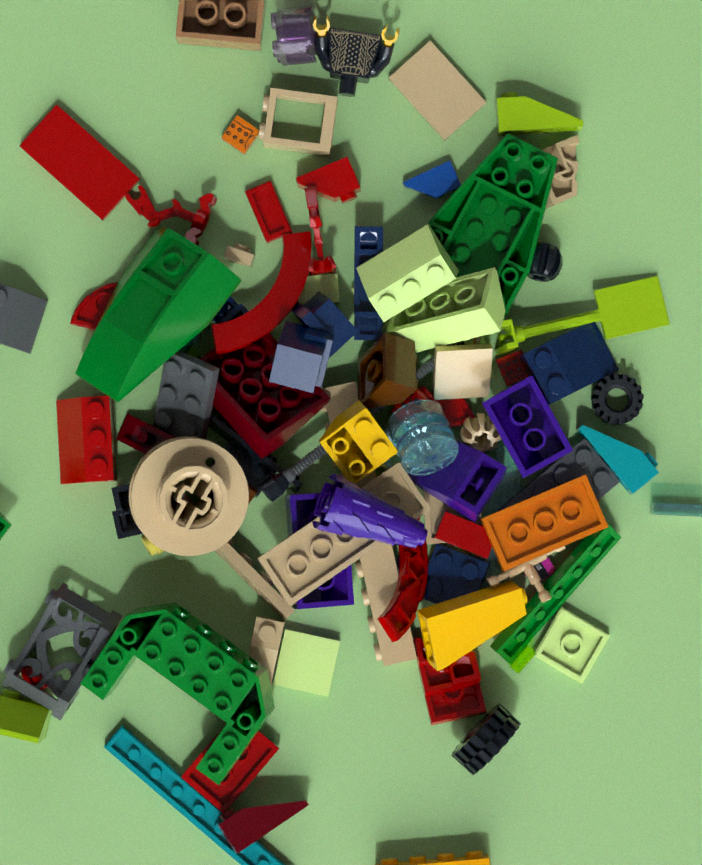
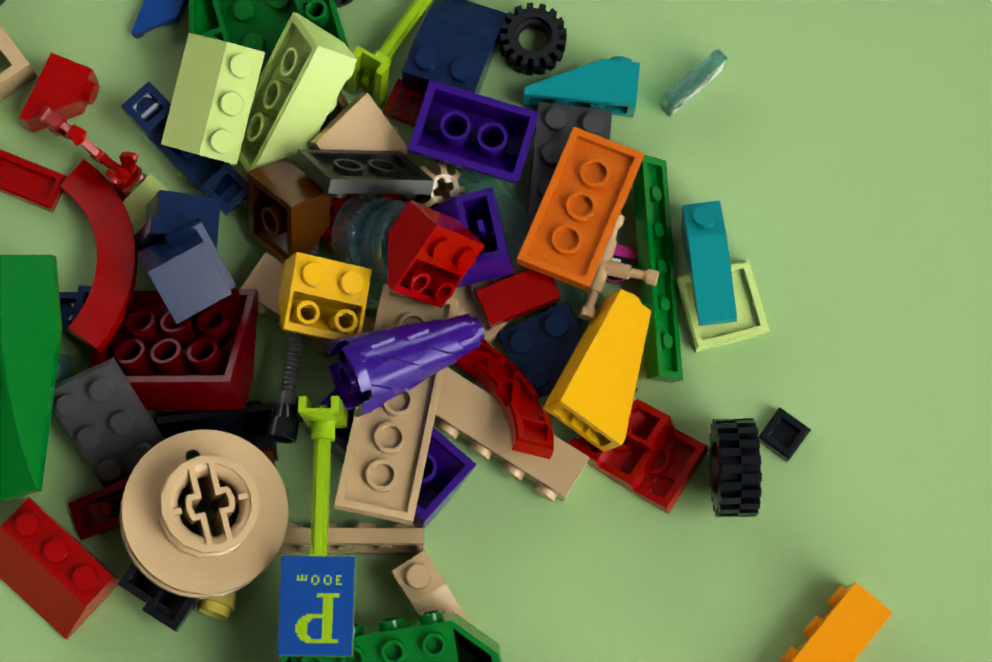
camera: 50 degrees left, 10 degrees down
(207, 594) = (318, 588): none -> piece
(240, 255) = (36, 242): tan plate -> none
(306, 662) = (486, 572): yellowish green tile -> none
(435, 474) = (429, 254): none -> red slope
(446, 393) = (364, 173): none -> pearl dark grey plate
(522, 659) = (690, 361): clear neon green tile -> none
(533, 744) = (783, 434): none -> black tile
(584, 618) = (708, 262): none -> teal slope

